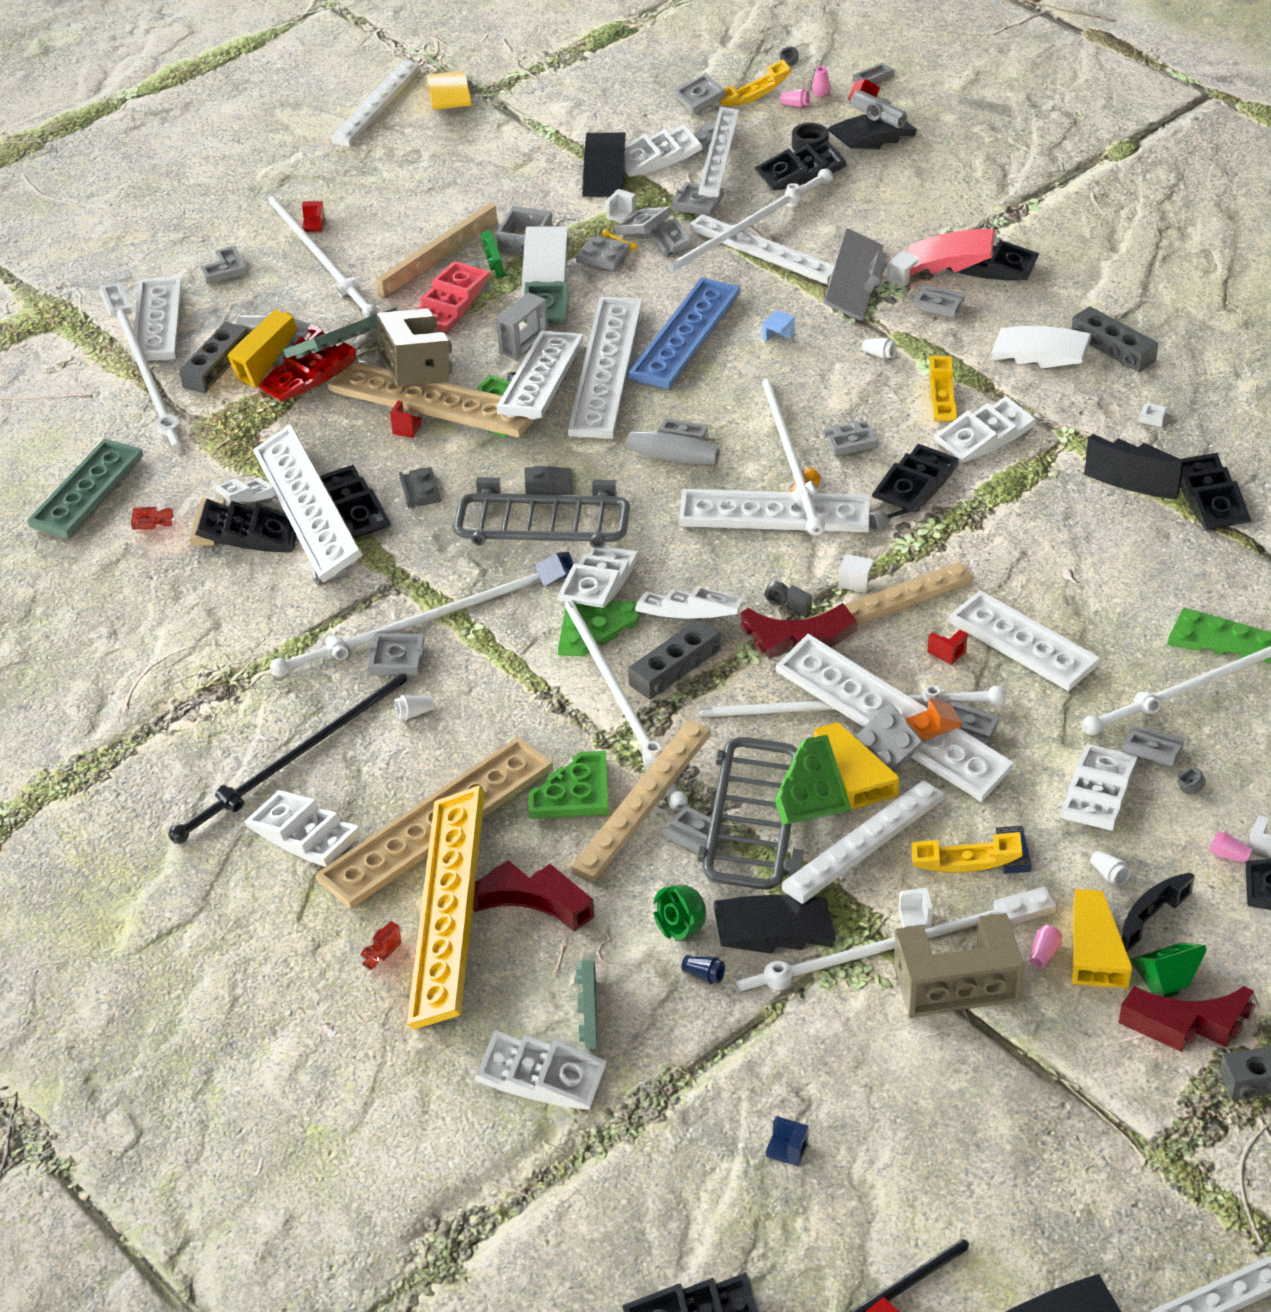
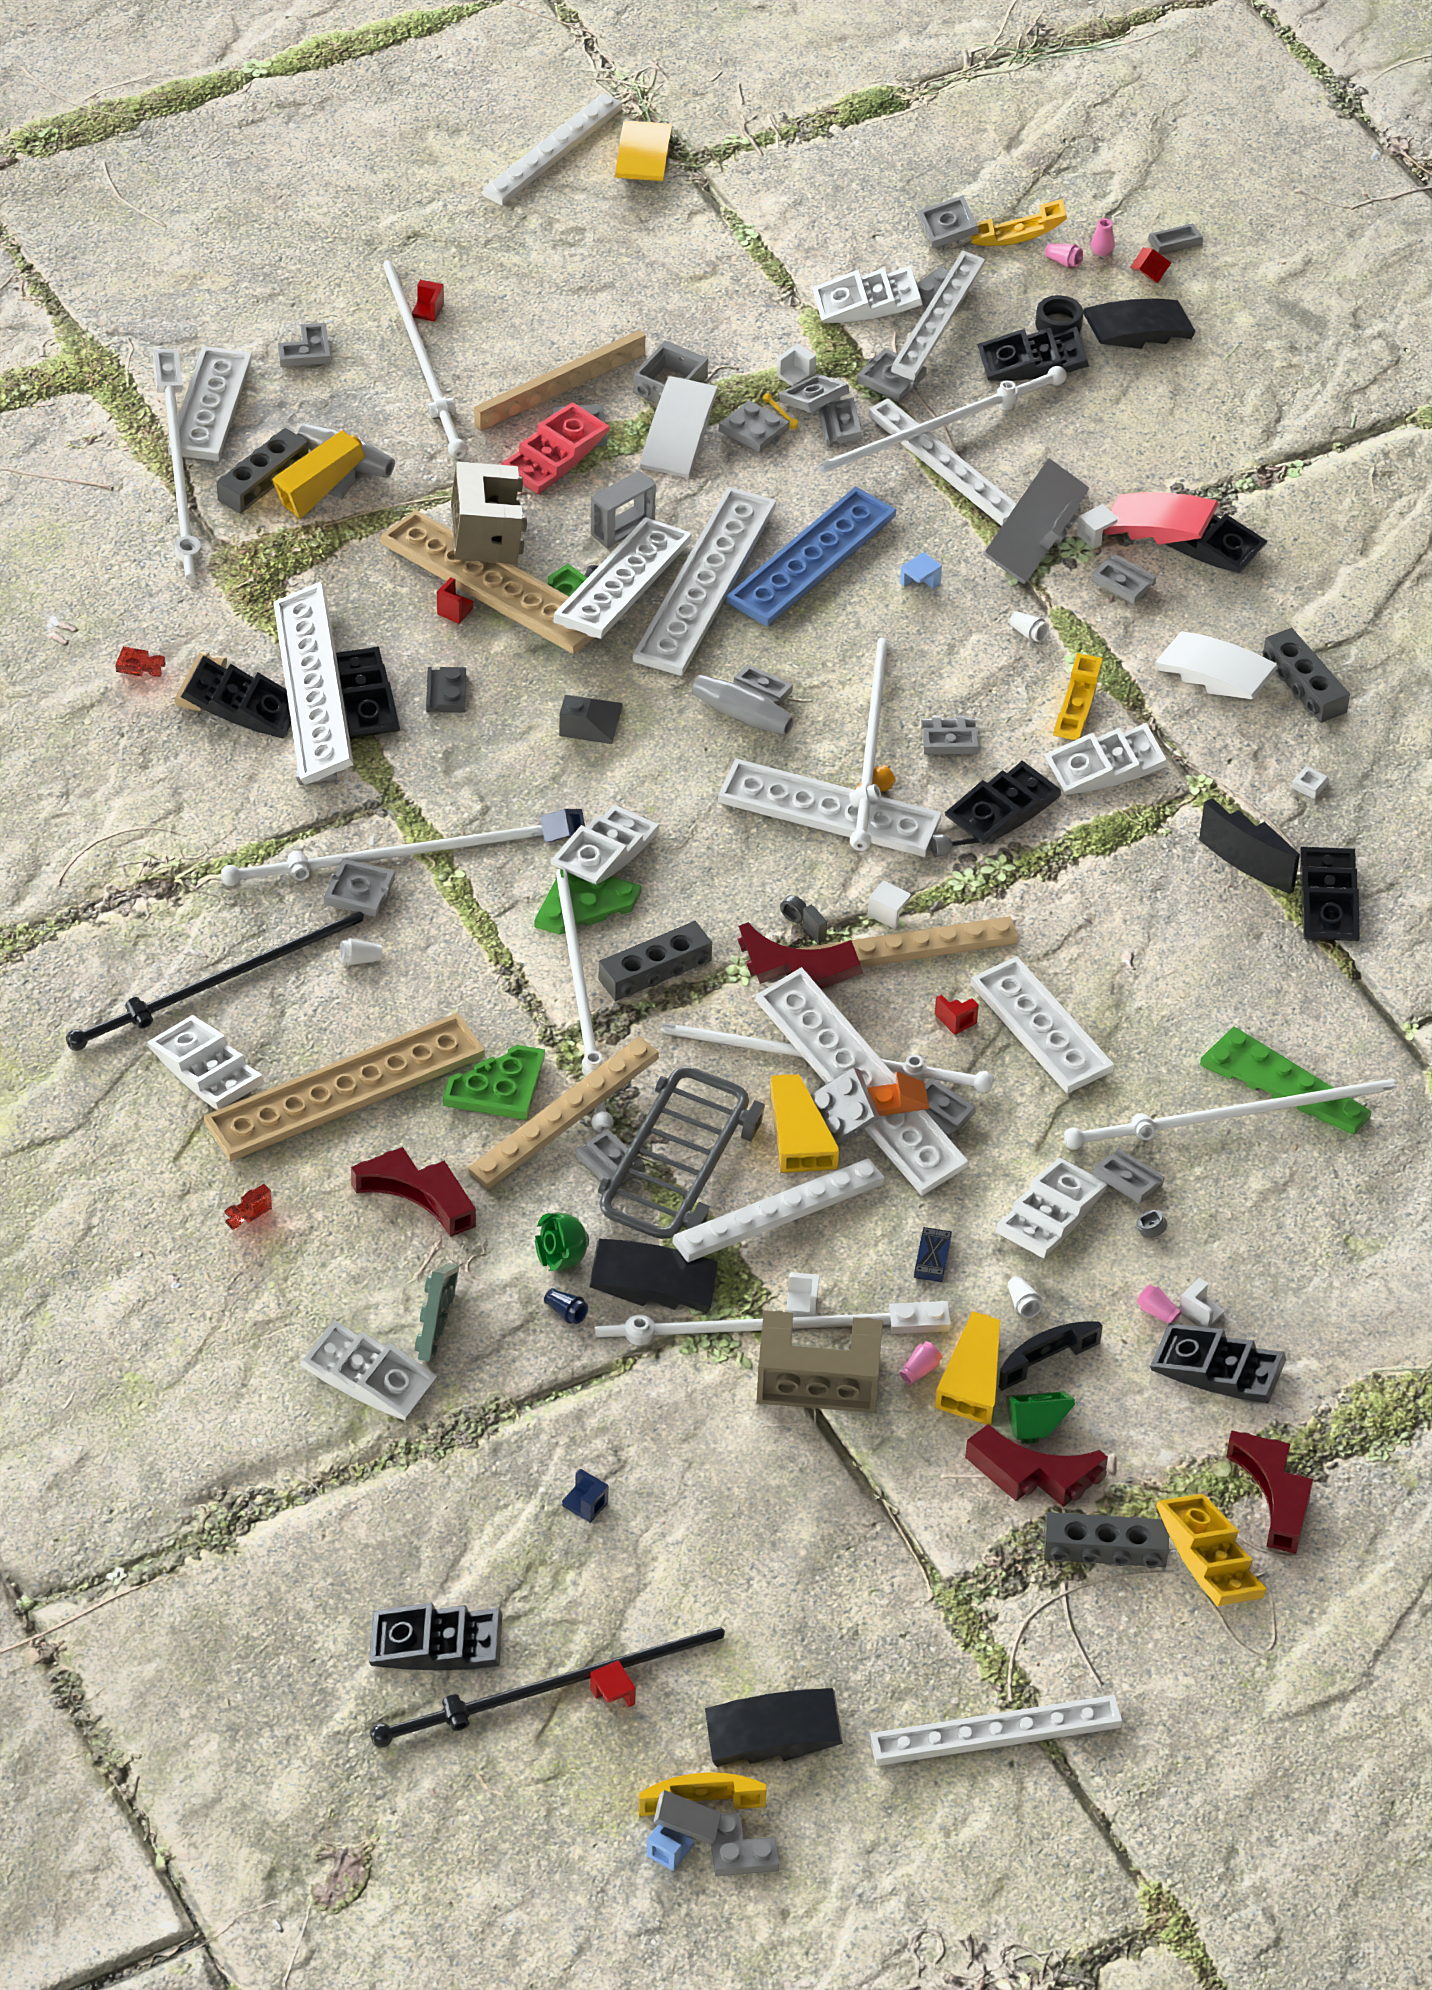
camera: 10 degrees right, 5 degrees up
(85, 488) = (77, 608): sand green plate -> none
(248, 492) = (252, 655): white slope -> none
(307, 372) = (363, 507): red wedge -> none
(334, 337) = (408, 477): sand green plate -> none
(446, 909) = (325, 1181): yellow plate -> none
(489, 490) = (521, 714): dark grey bar -> none
(492, 253) = (622, 398): green hinge -> none
(556, 298) = (671, 478): sand green plate -> none
(603, 163) = (795, 301): black slope -> none
(699, 604) = (683, 900): white slope -> none
(789, 55) = (1080, 188): dark grey tile -> none
(812, 784) = (744, 1137): bright green plate -> none
(879, 109) = (1153, 297): light grey piece -> none
(967, 857) = (877, 1251): yellow slope -> none

